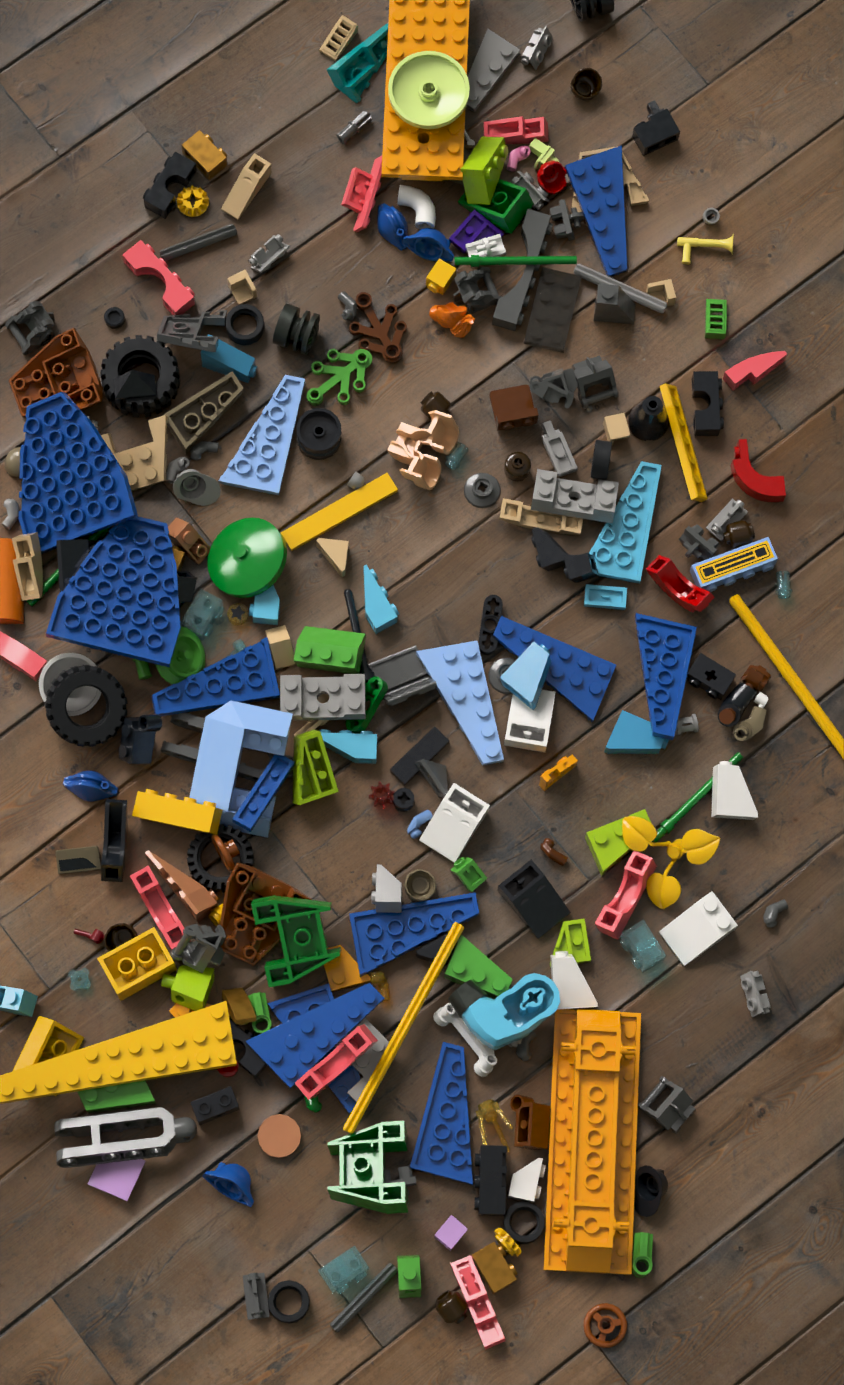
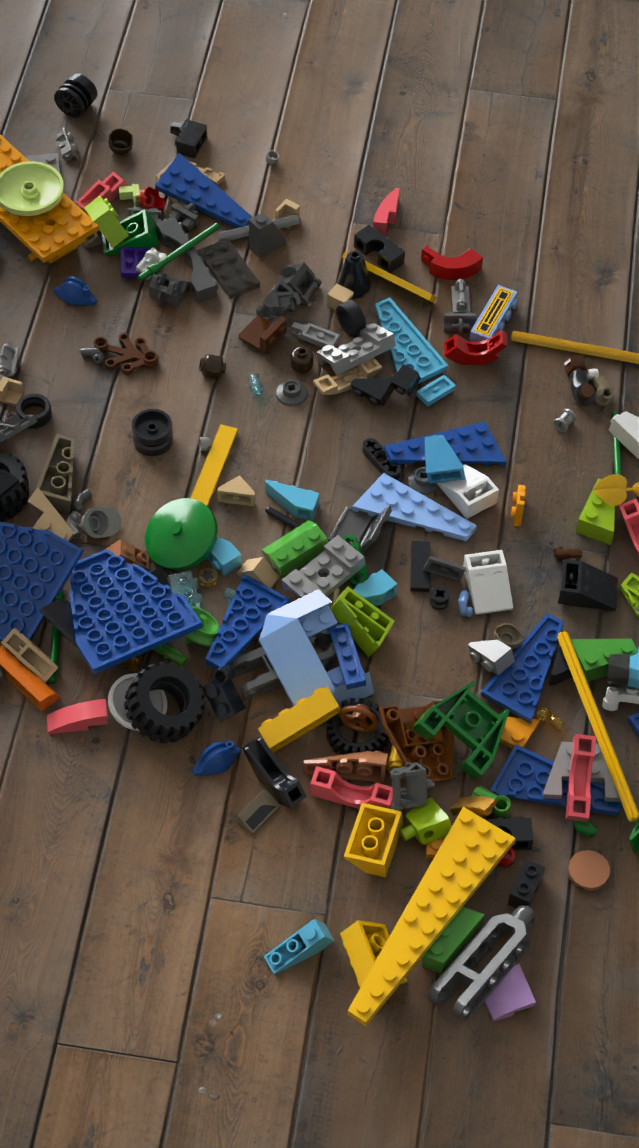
camera: 40 degrees left, 20 degrees down
(84, 983) = (341, 893): clear light blue plate -> none
(97, 936) = (324, 852): dark red hand -> none
(118, 935) = (340, 833): dark brown hair -> none
(229, 359) = (41, 435): dark azure slope -> none
(232, 1182) = (593, 926): blue hat -> none
(265, 450) = (124, 470): light blue wing -> none
(297, 329) = (74, 384): pearl dark grey wheel -> none
(307, 1039) = (543, 785): blue wing -> none
(340, 374) = (132, 378): bright green plant -> none
(361, 193) = (36, 287): coral bracket -> none
(380, 789) = (422, 605): clear red gear -> none
(420, 203) = (81, 268): white cylinder -> none
(424, 468) = (216, 393): light nougat piece -> none
(429, 245) = (113, 285): blue hat -> none
(440, 277) = (138, 297): yellow brick -> none
(453, 317) = (171, 312): orange hair -> none
(468, 873) = (529, 605): bright green bracket -> none
(517, 155) = (117, 204): bright pink arm -> none
(633, 736) = (542, 448): dark azure slope -> none
(665, 663) = (515, 394): blue wing -> none
(687, 243) = (299, 162): light yellow piece -> none
(703, 668) = (549, 383): black brick -> none
(712, 332) = (344, 207): bright green slope -> none
(738, 534) = (478, 298): dark brown head -> none
(783, 585) = (537, 309): clear light blue pin -> none

